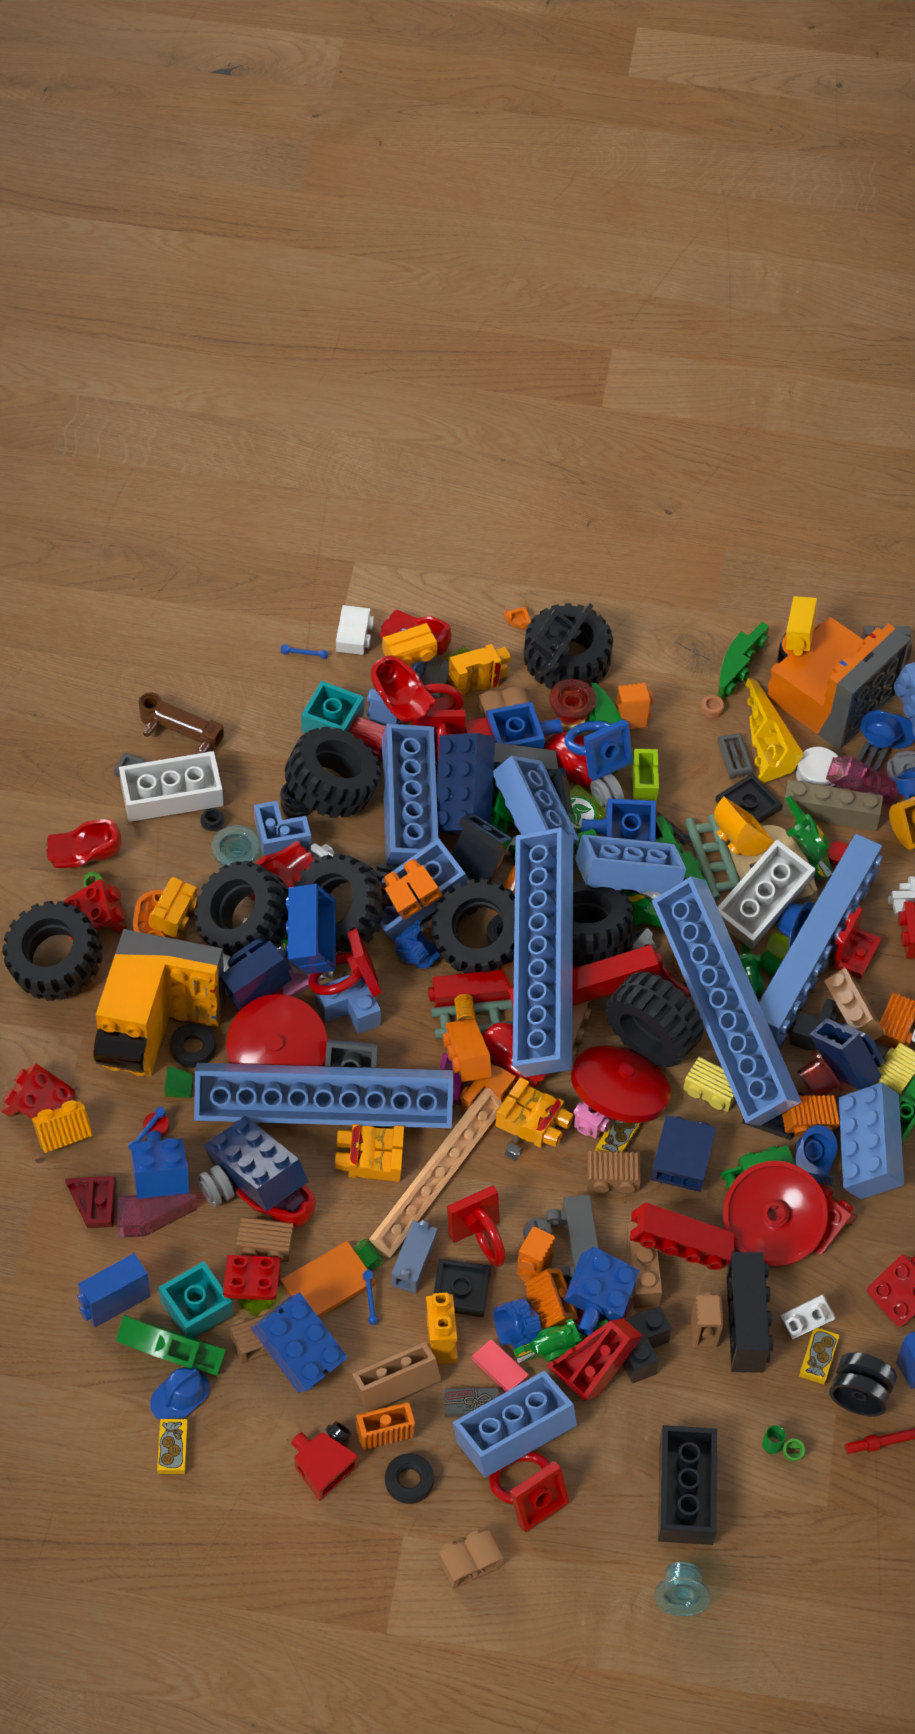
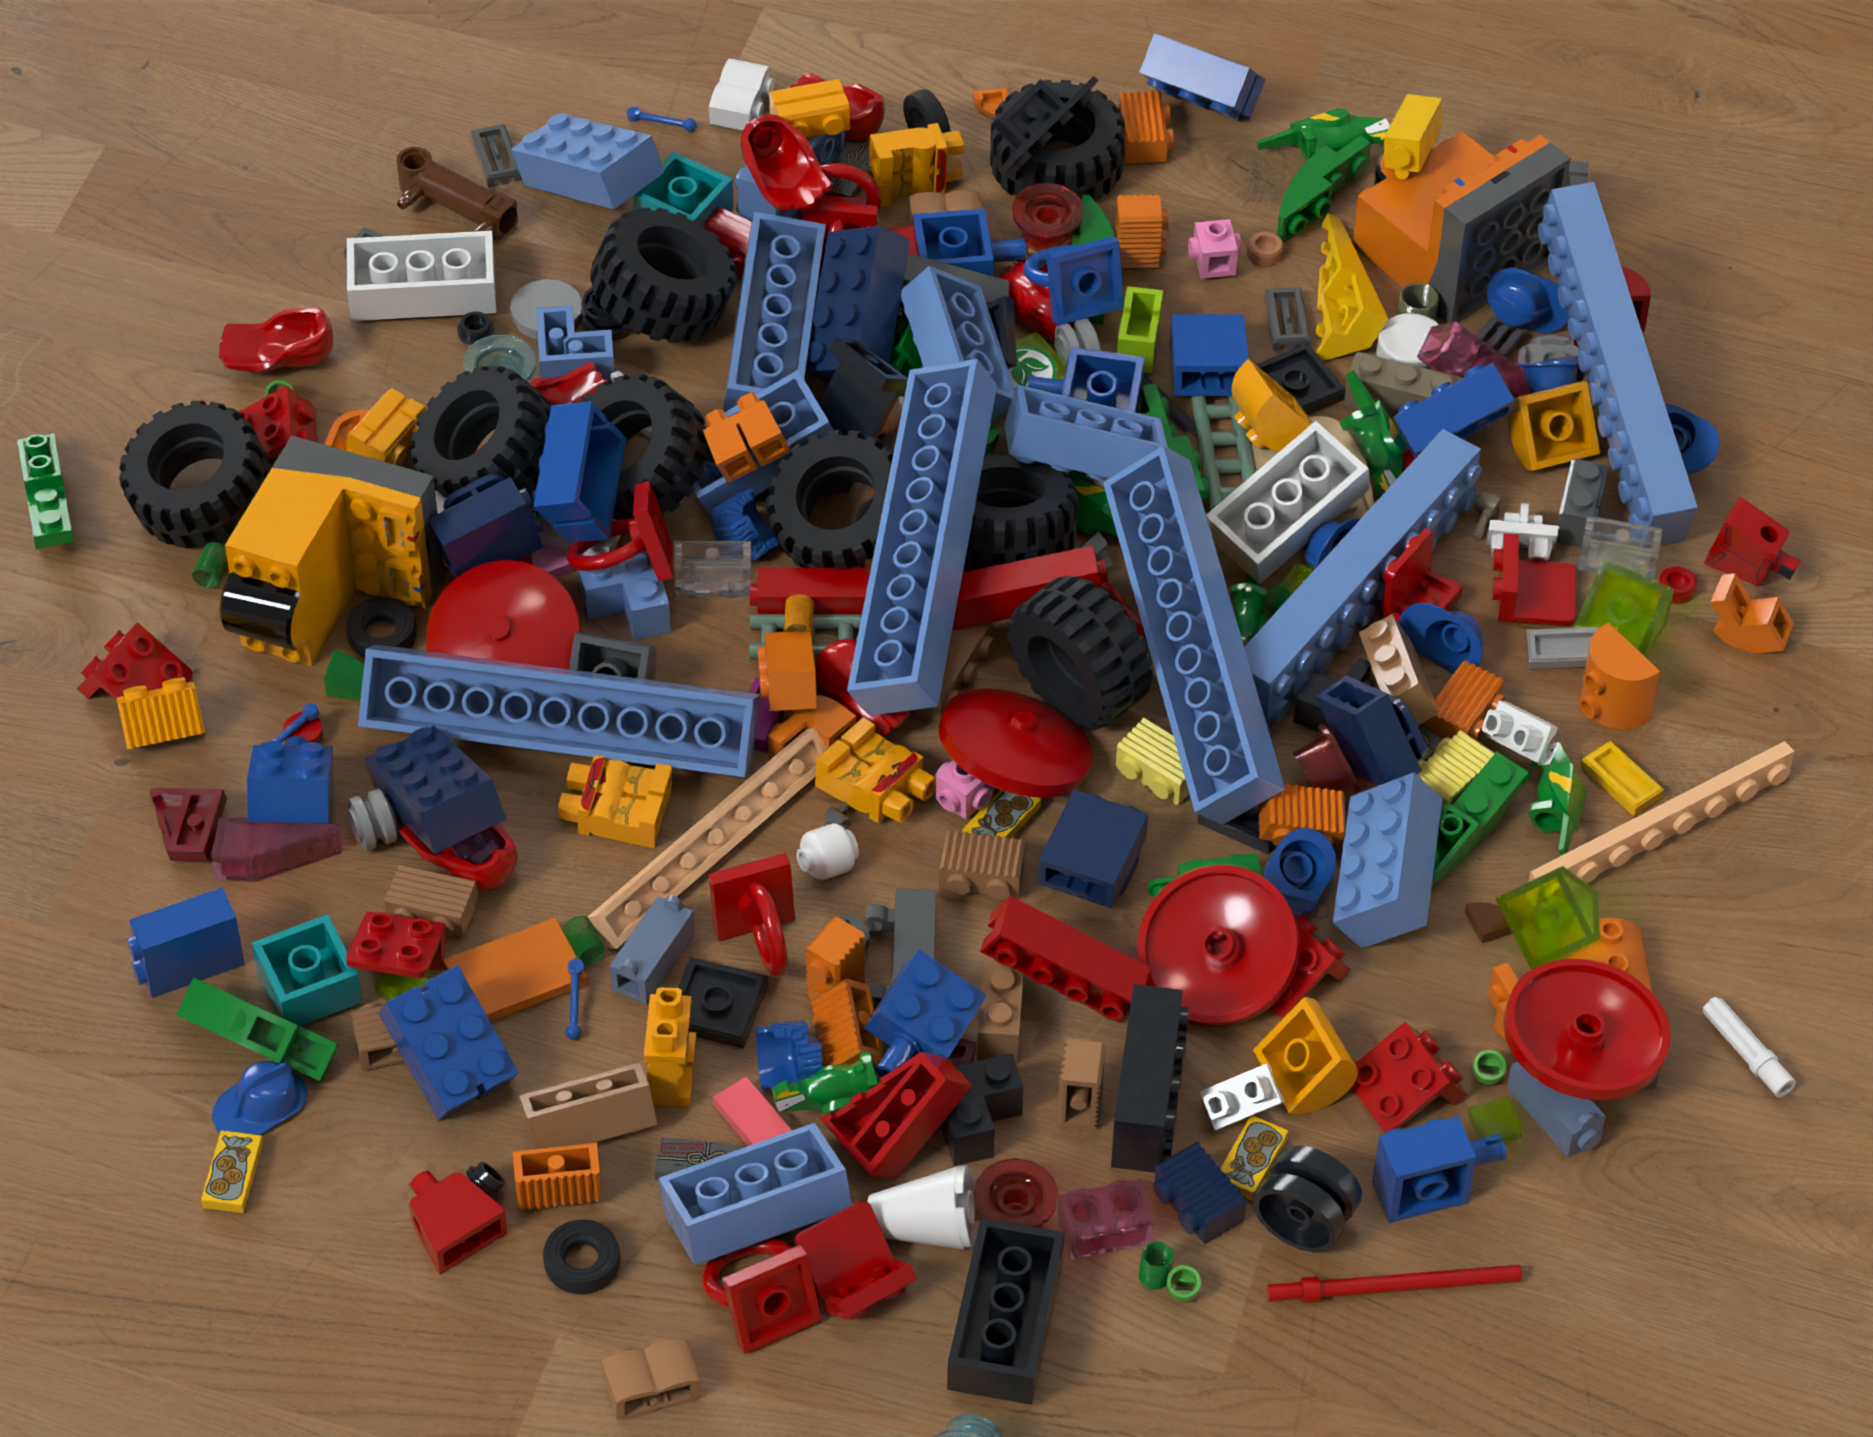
camera: 10 degrees right, 5 degrees down
(77, 1018) = (211, 566): none -> green piece
(206, 702) = (501, 173): none -> dark grey tile
(251, 793) = (542, 294): none -> light grey tile
(266, 692) = (587, 160): none -> medium blue brick
(403, 980) = (712, 569): none -> clear brick
(478, 634) = (924, 109): none -> black tyre
(513, 1173) = (827, 851): none -> white head
(586, 1464) = (853, 1262): none -> red bracket
(622, 624) = (1145, 127): none -> orange brick
(624, 1421) = (930, 1209): none -> white cone
(652, 590) = (1201, 78): none -> piece
(679, 1403) = (1016, 1193): none -> clear red piece
(682, 712) = (1215, 248): none -> bright pink brick
(691, 789) = (1206, 353): none -> blue brick
(740, 1417) = (1107, 1226): none -> clear pink brick
(741, 618) = (1330, 128): none -> green animal
(792, 1386) = (1199, 1193): none -> dark blue brick
(818, 732) = (1419, 296): none -> olive piece
(843, 1285) = (1307, 1059): none -> light orange brick
(858, 817) = (1457, 408): none -> blue brick
(877, 976) = (1443, 635): none -> blue piece
(886, 876) = (1489, 506): none -> dark tan hand

